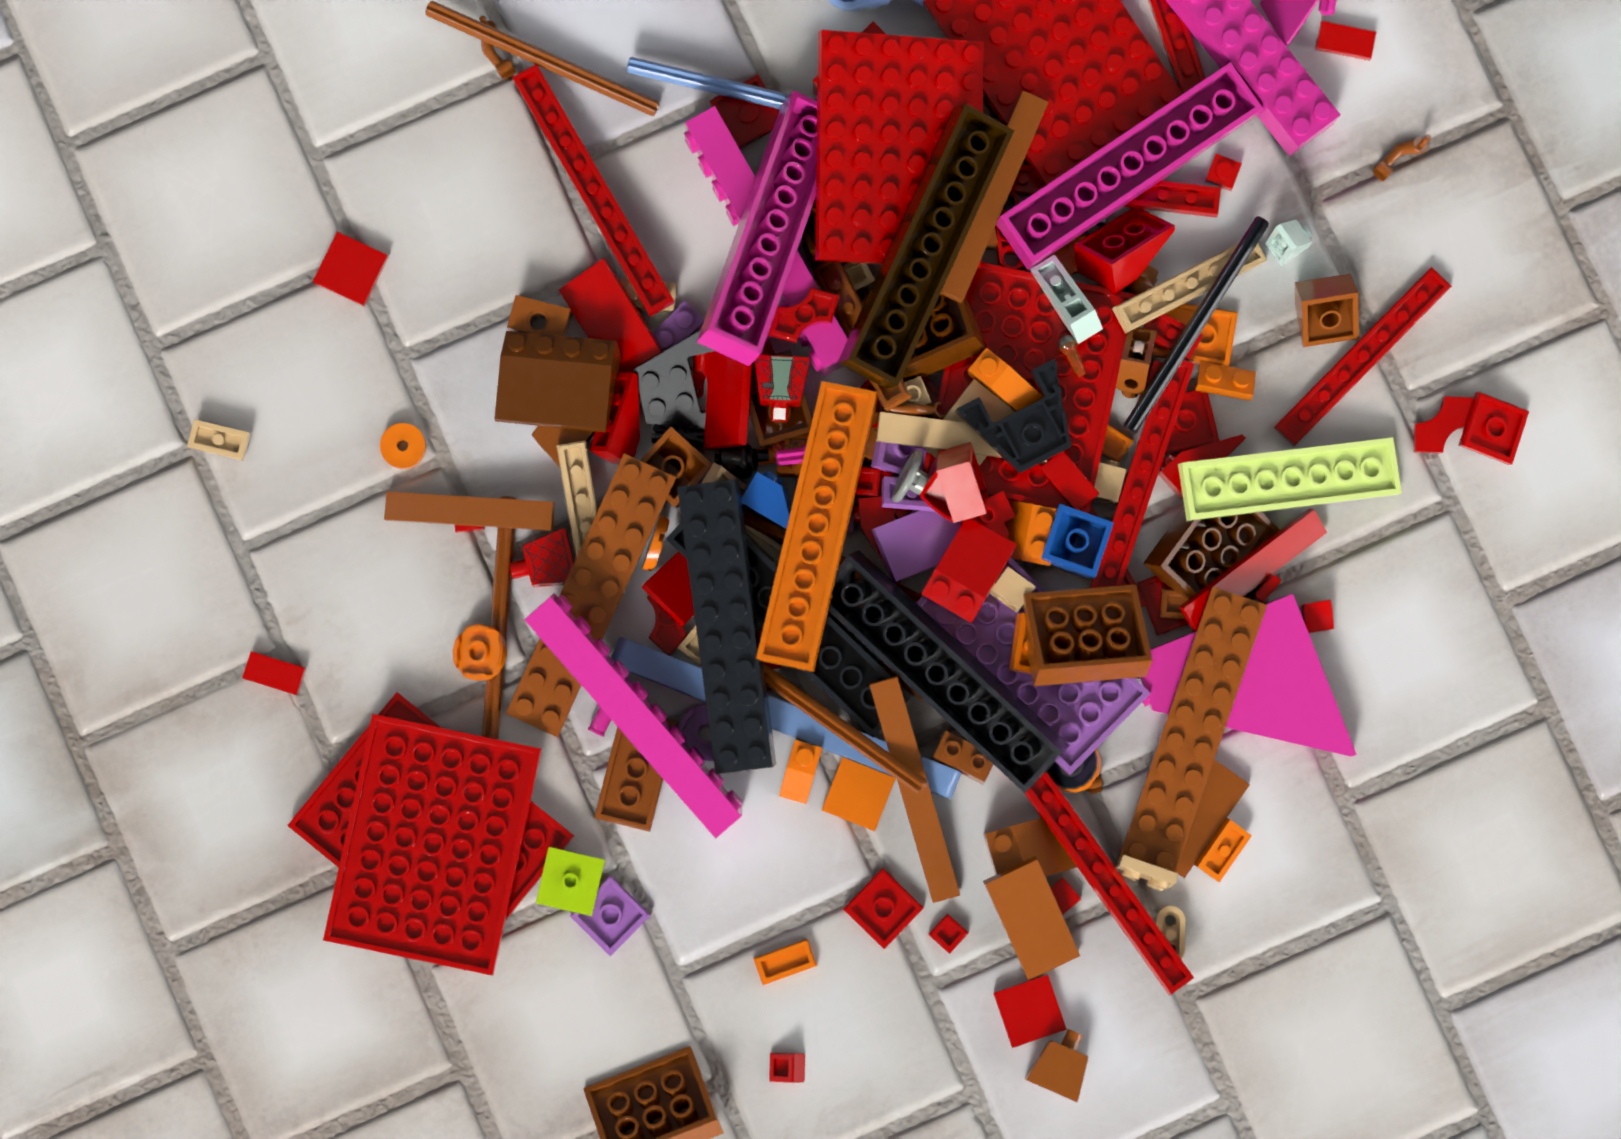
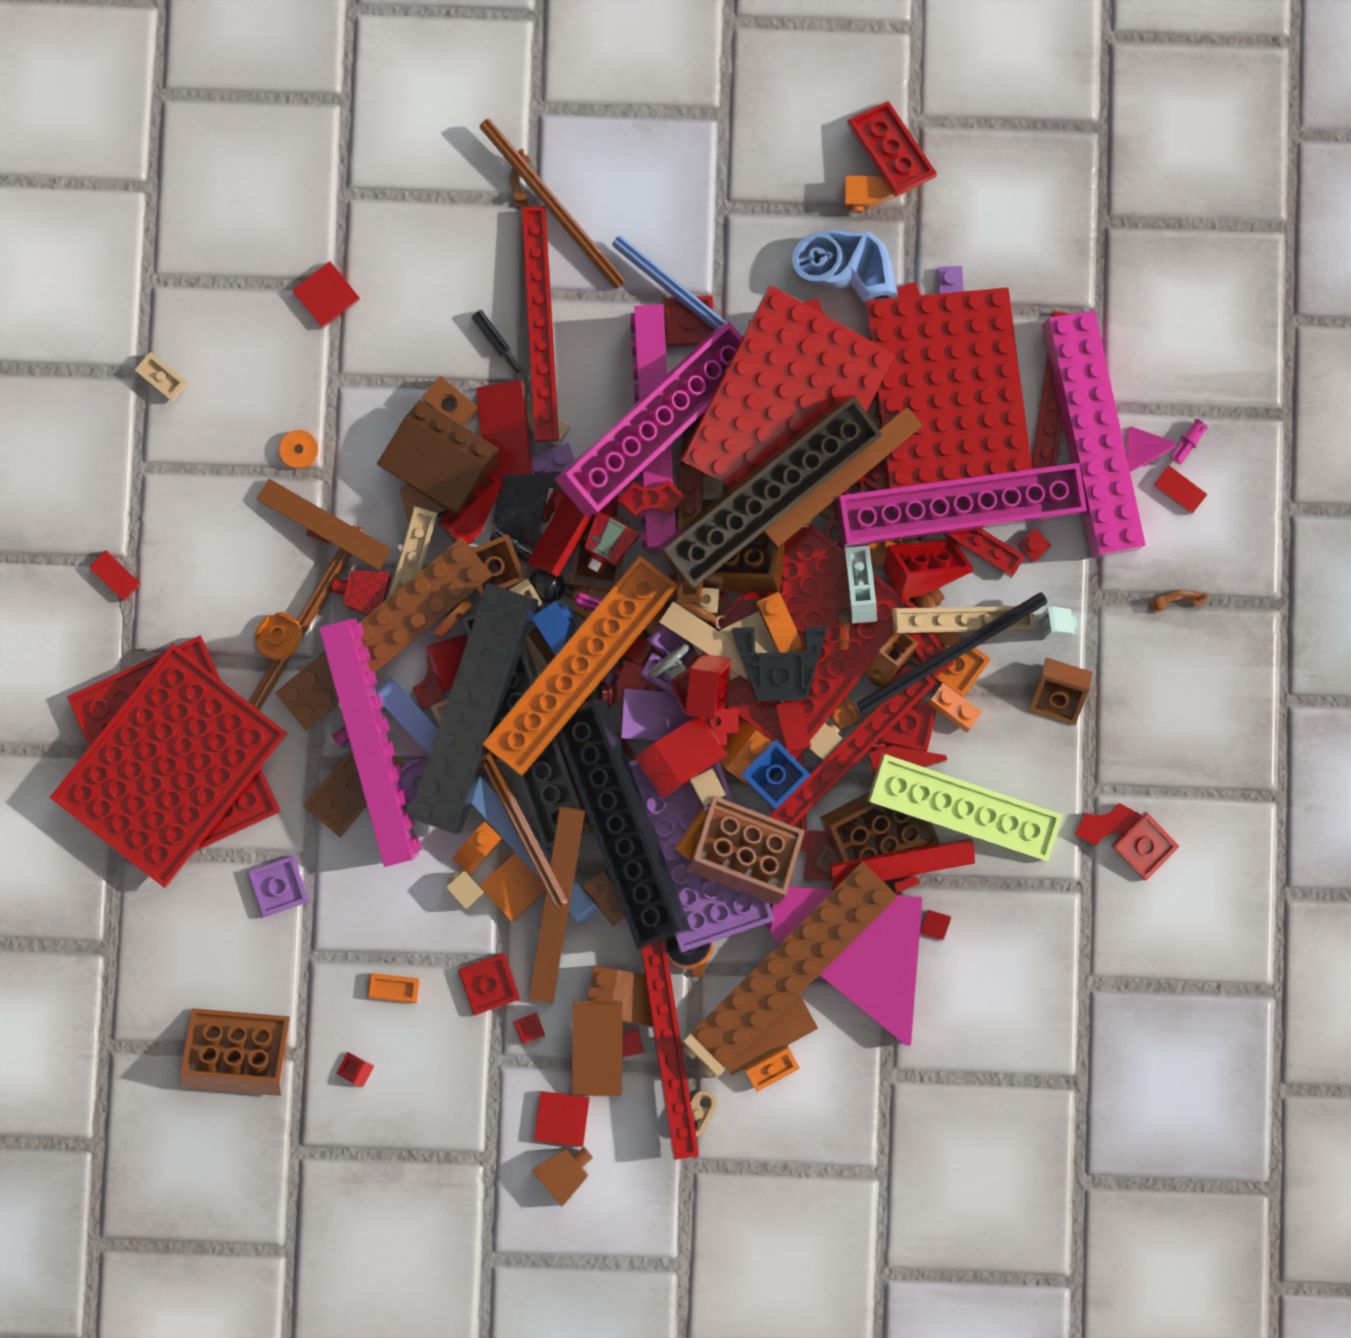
camera: 25 degrees right, 0 degrees up
(552, 229) = (495, 338): none -> black axle
(570, 881) = (259, 845): lime plate -> none
(808, 821) = (464, 889): none -> tan brick
(855, 542) = (606, 693): none -> red plate
(1362, 356) = (1071, 740): red tile -> none

